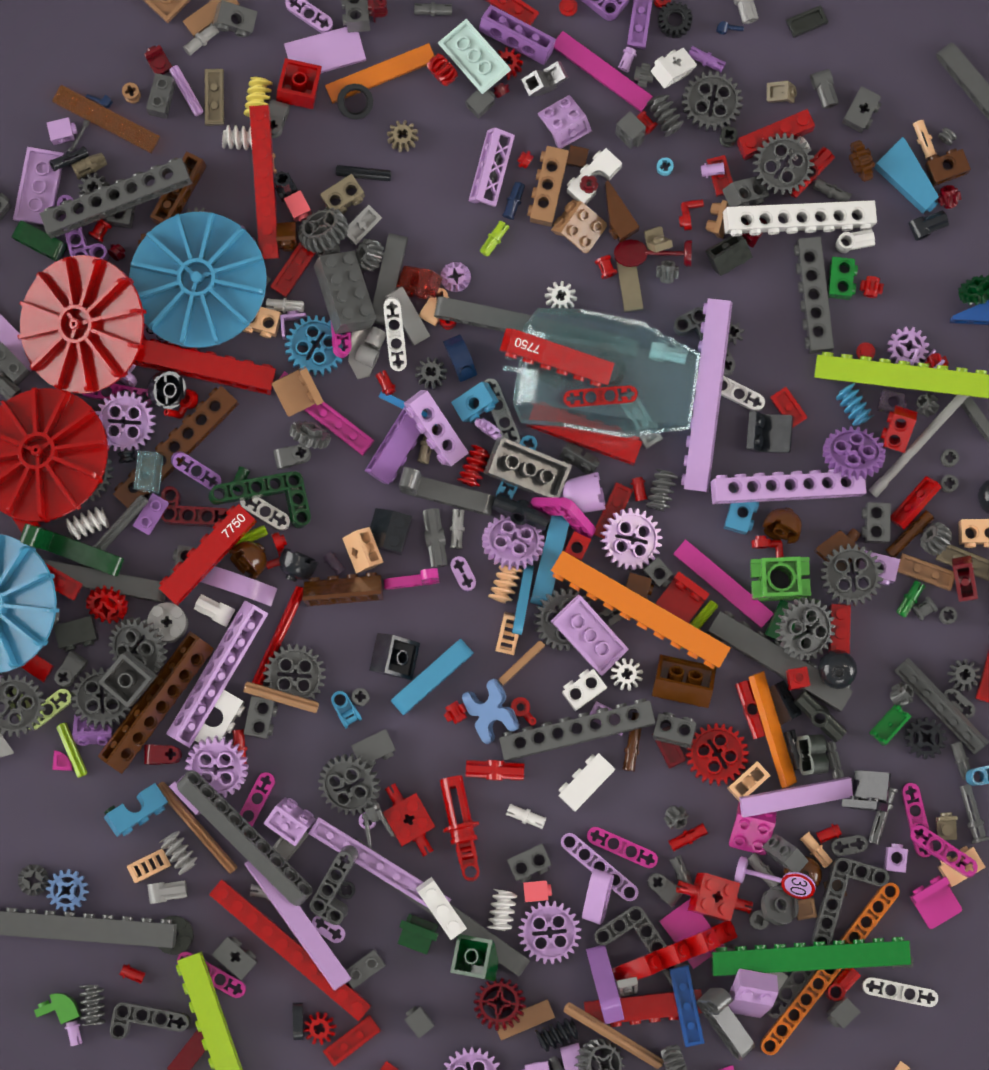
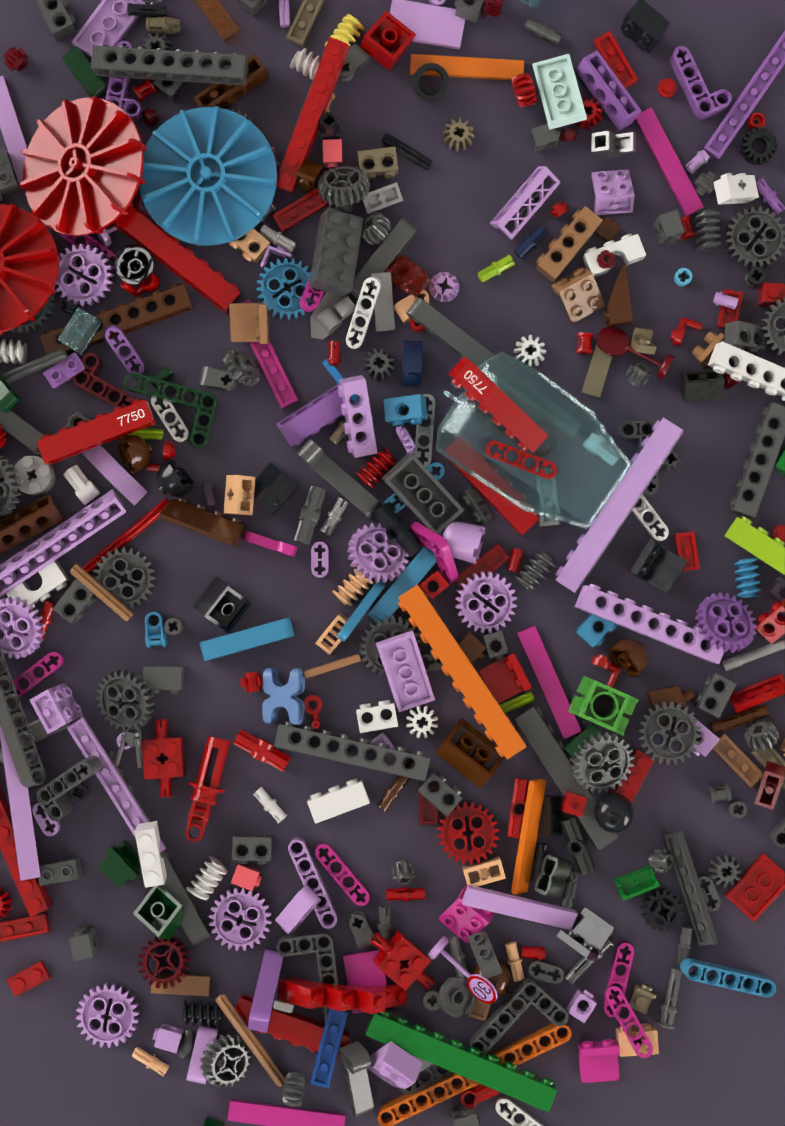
camera: 25 degrees right, 5 degrees up
(910, 599) = (711, 778): green axle -> none

